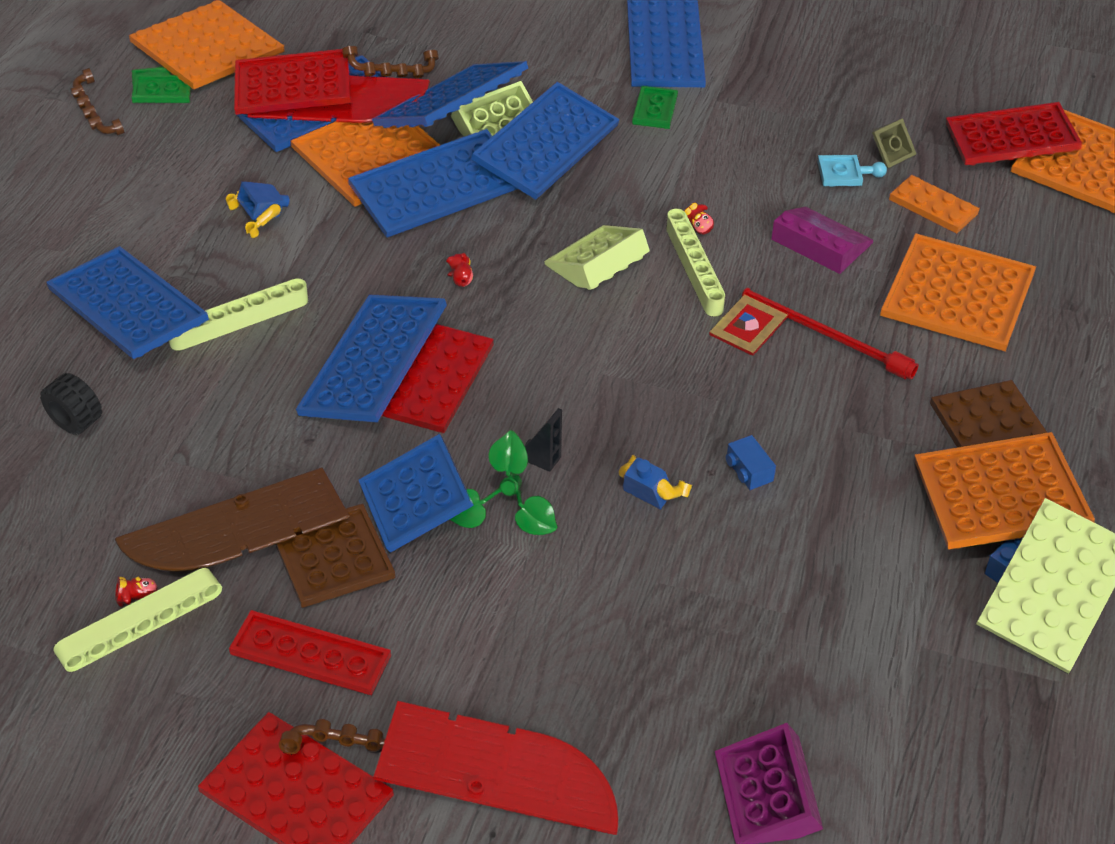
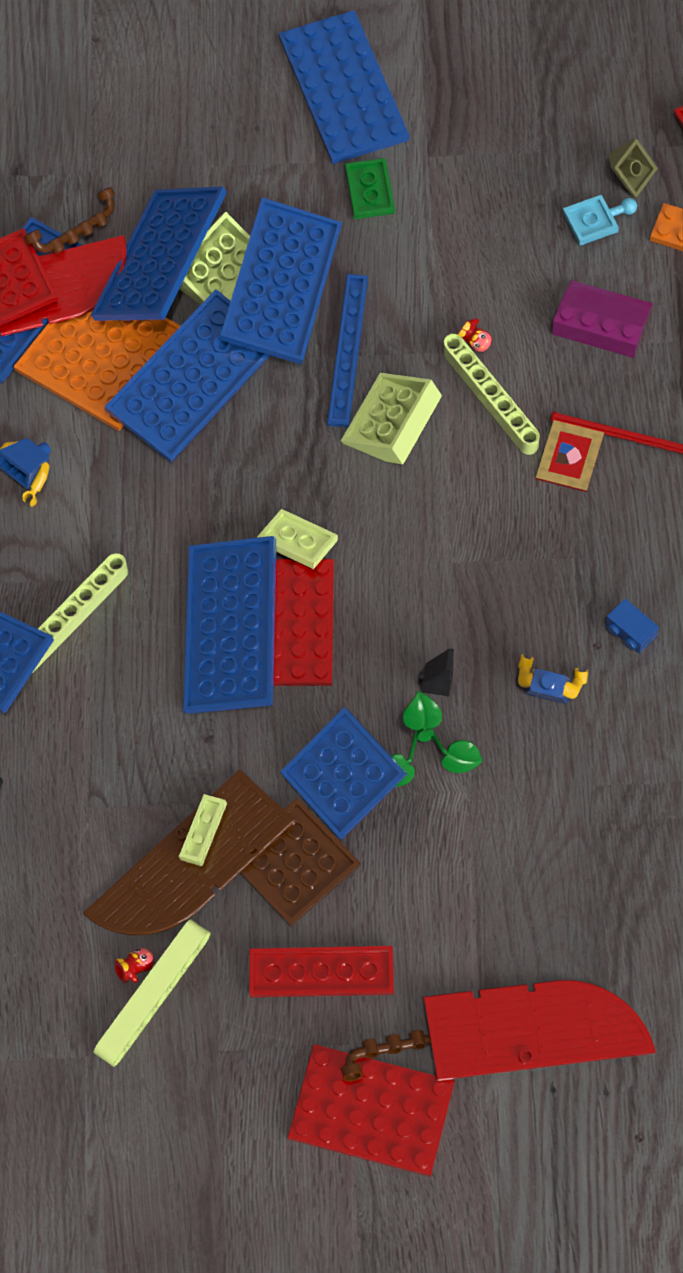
camera: 15 degrees left, 20 degrees up
(259, 498) = (202, 830): none -> yellowish green plate
(461, 269) = (267, 484): red animal -> none
(470, 314) = (299, 538): none -> yellowish green plate
(581, 205) = (347, 351): none -> blue tile

